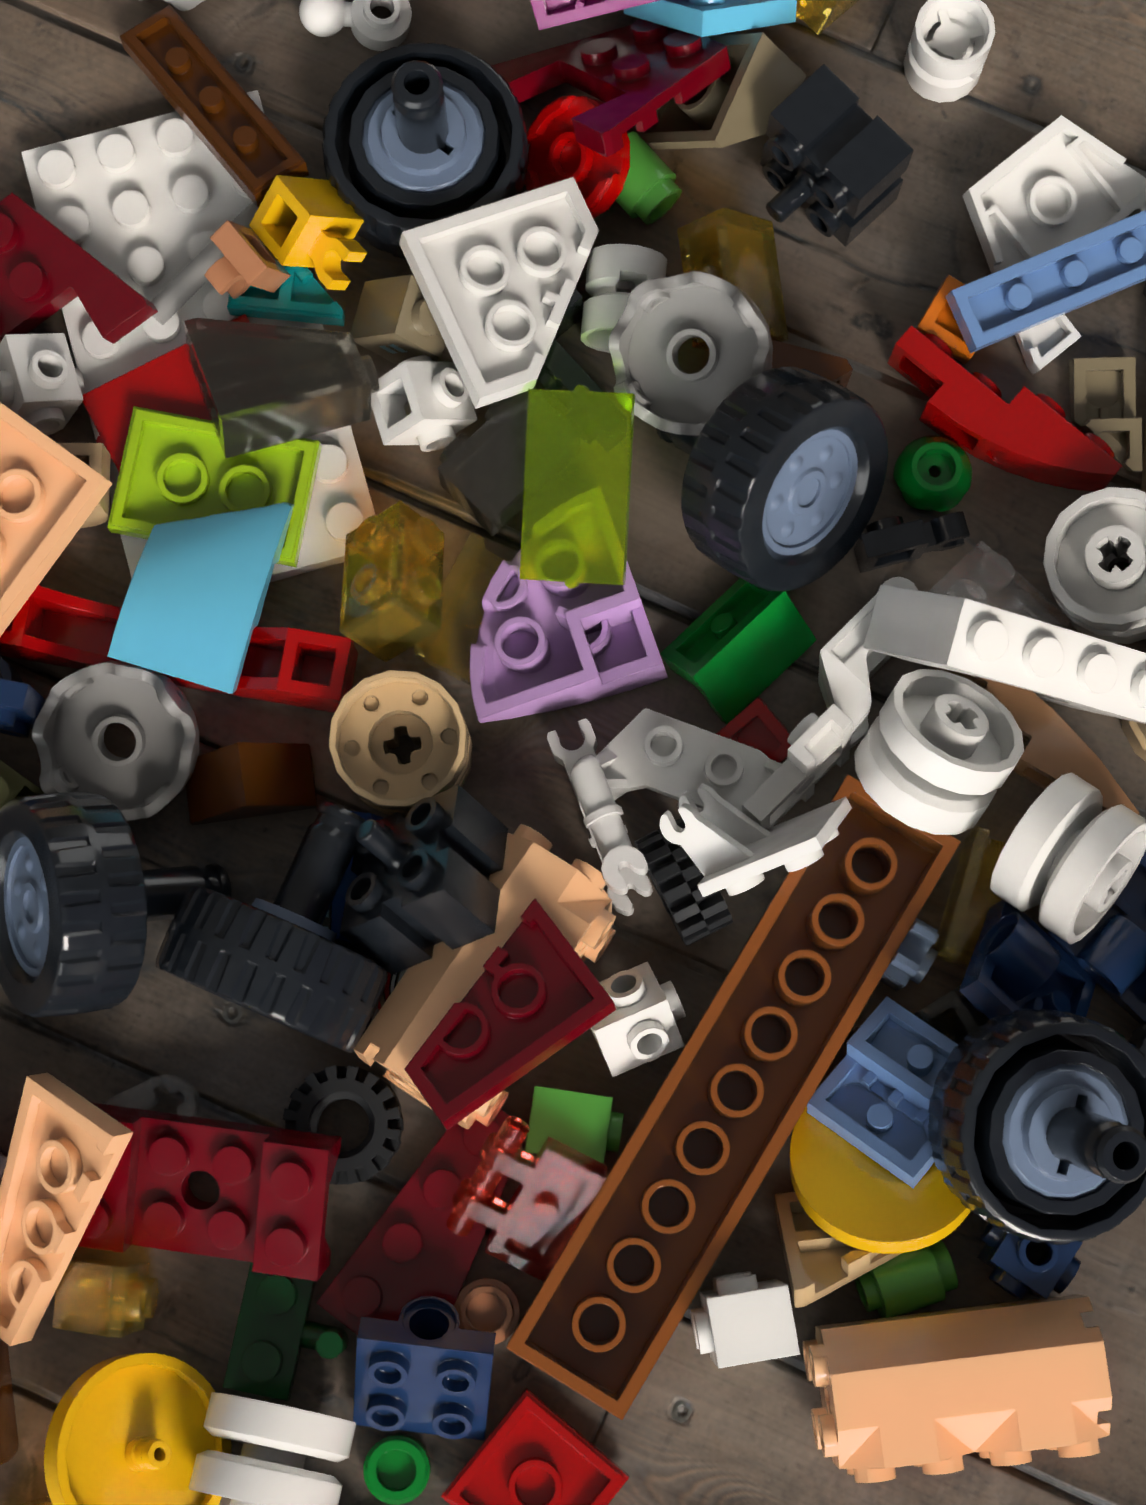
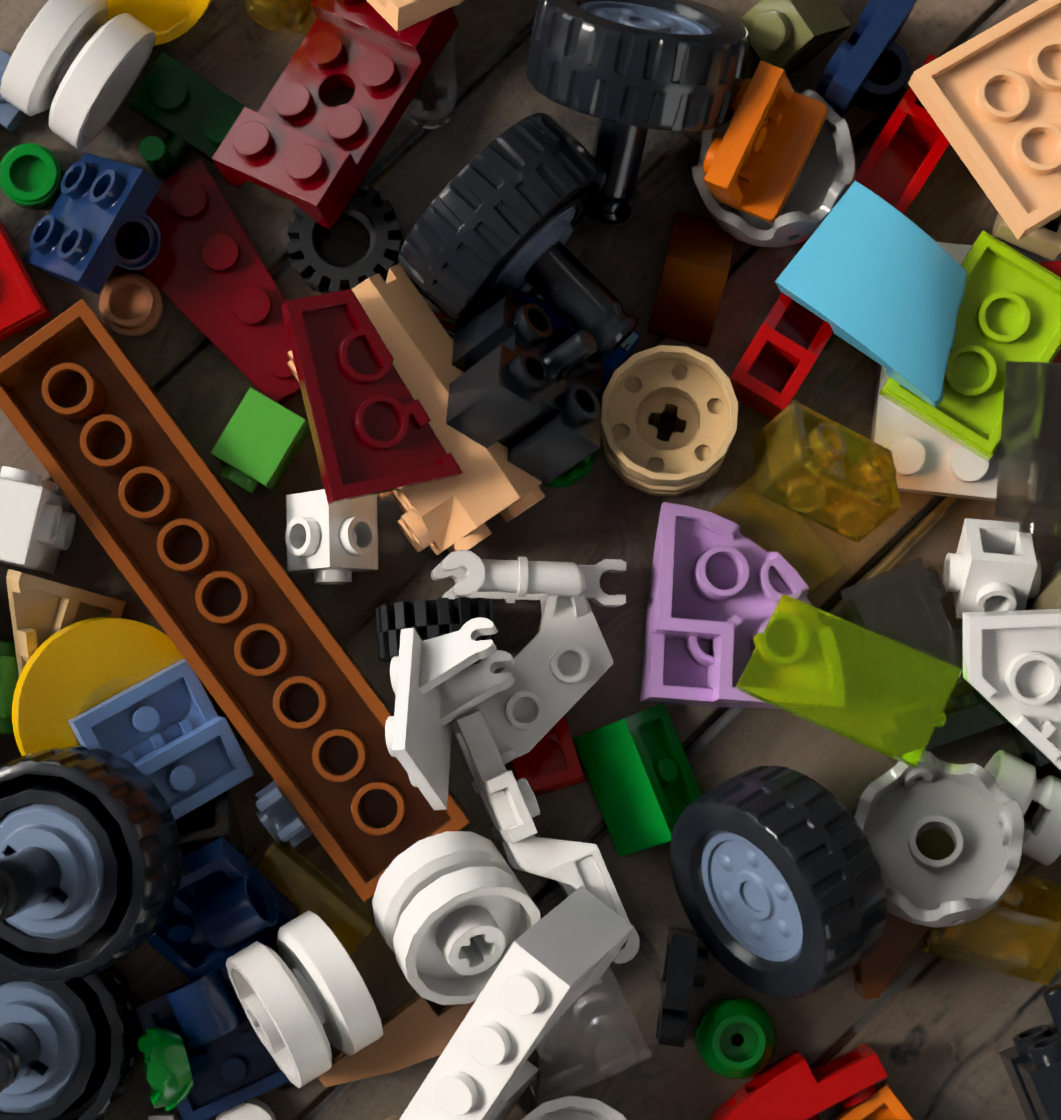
camera: 110 degrees right, 5 degrees up
(104, 751) = (764, 144): none -> orange bracket
(545, 1207) = (192, 384): clear red plate -> none

